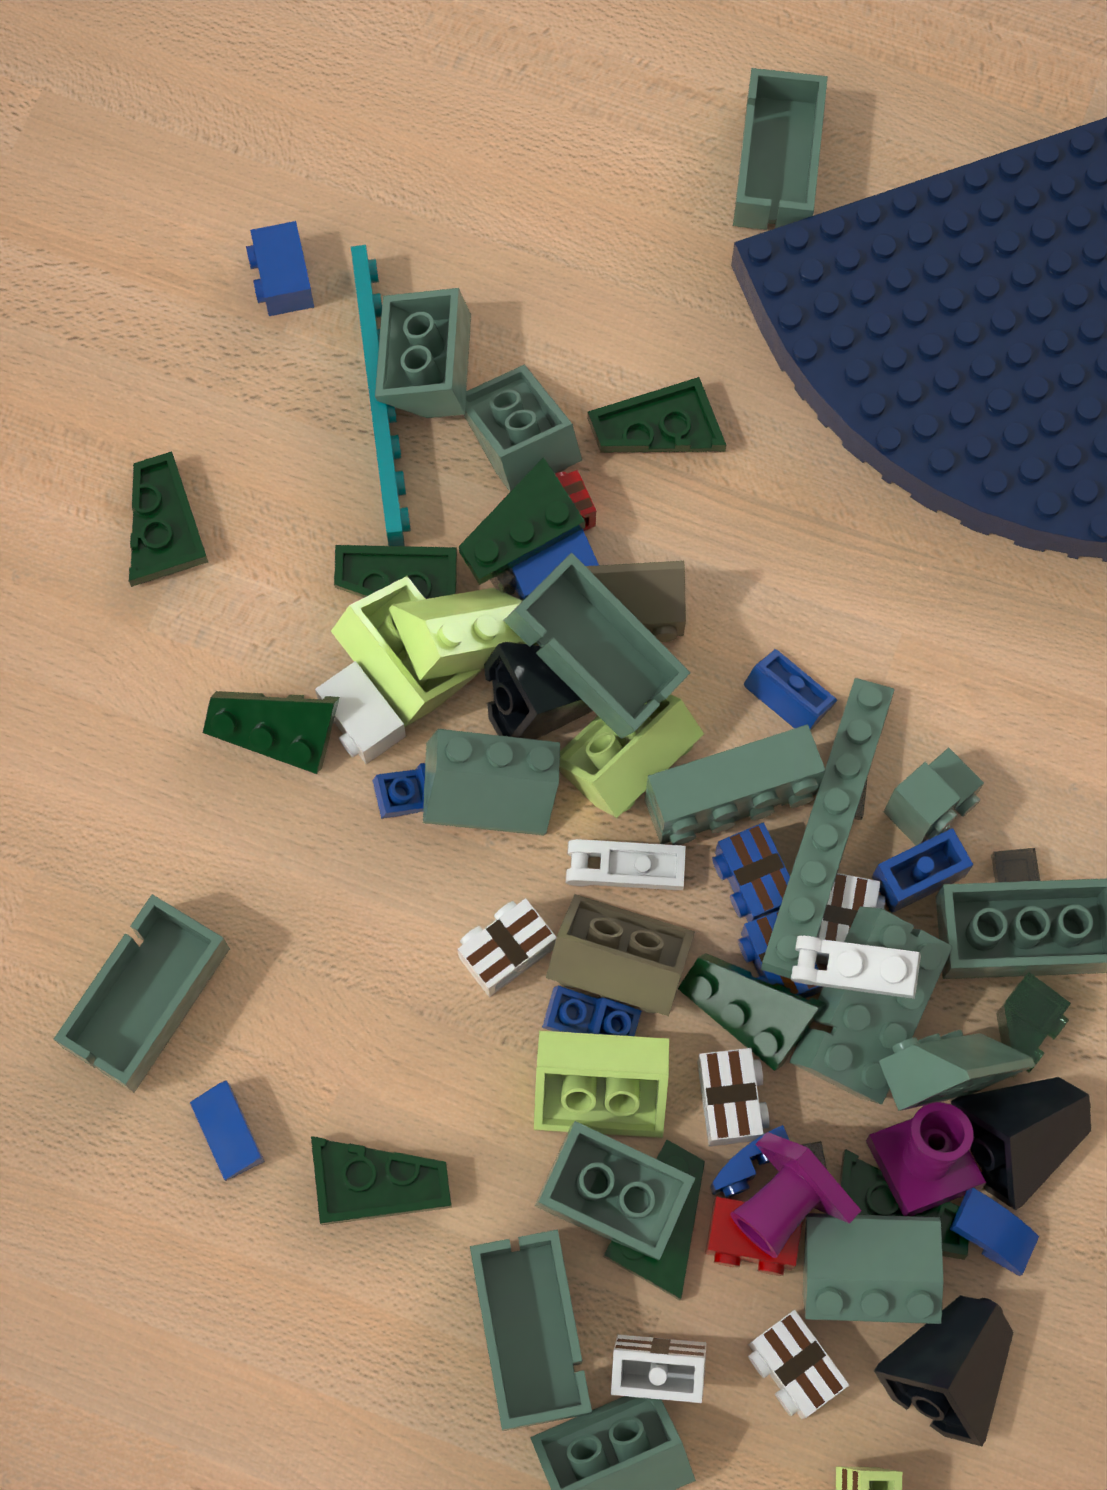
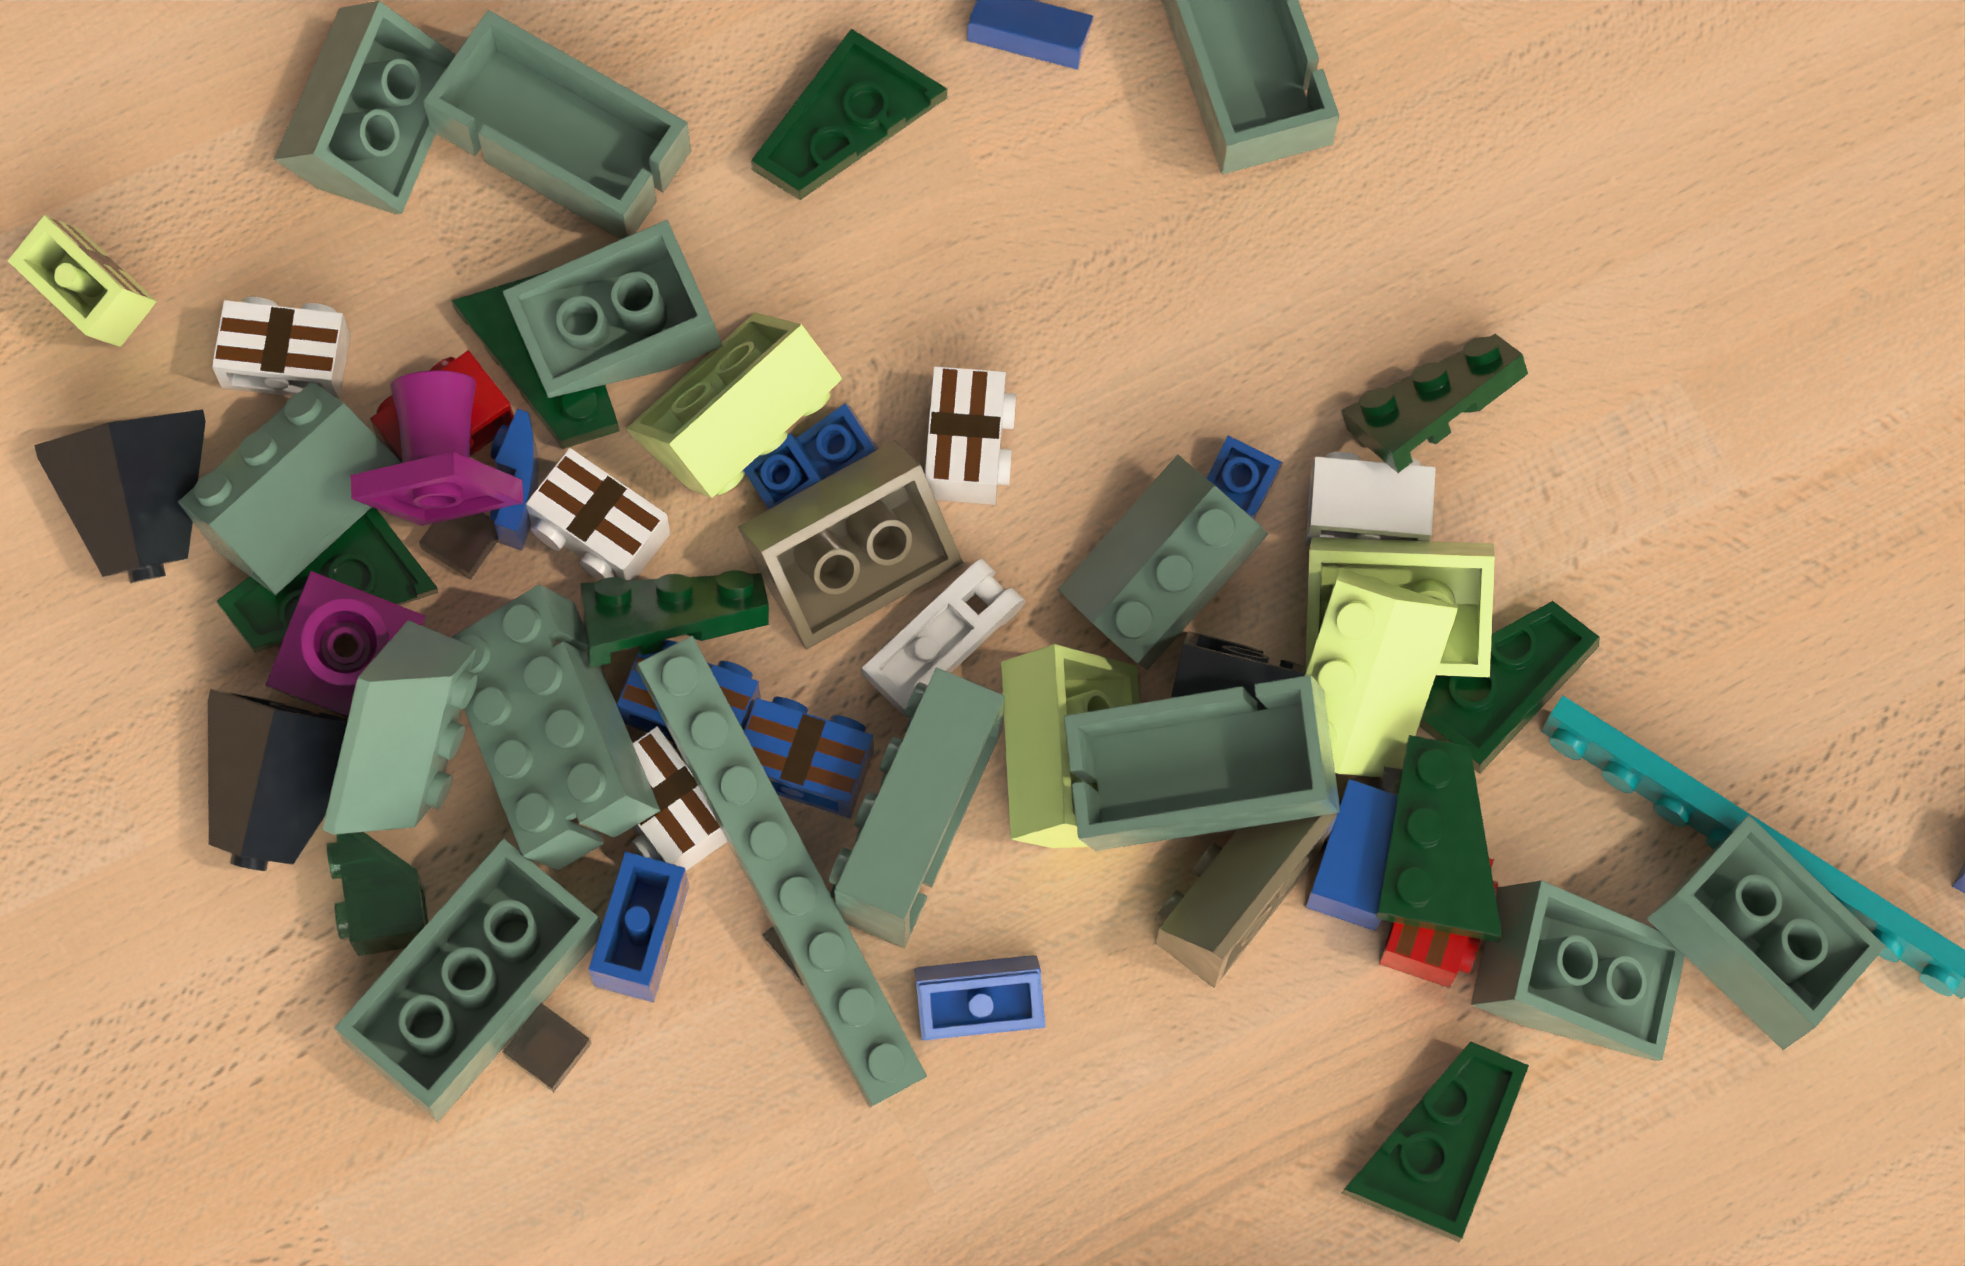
camera: 130 degrees right, 0 degrees up
(163, 524) = (1791, 486): dark green wing -> none
(658, 1368) = (405, 212): white brick -> none
(857, 967) = (588, 707): white plate -> none
(933, 796) = (708, 1009): sand green brick -> none
(996, 1230) = (210, 649): blue slope -> none

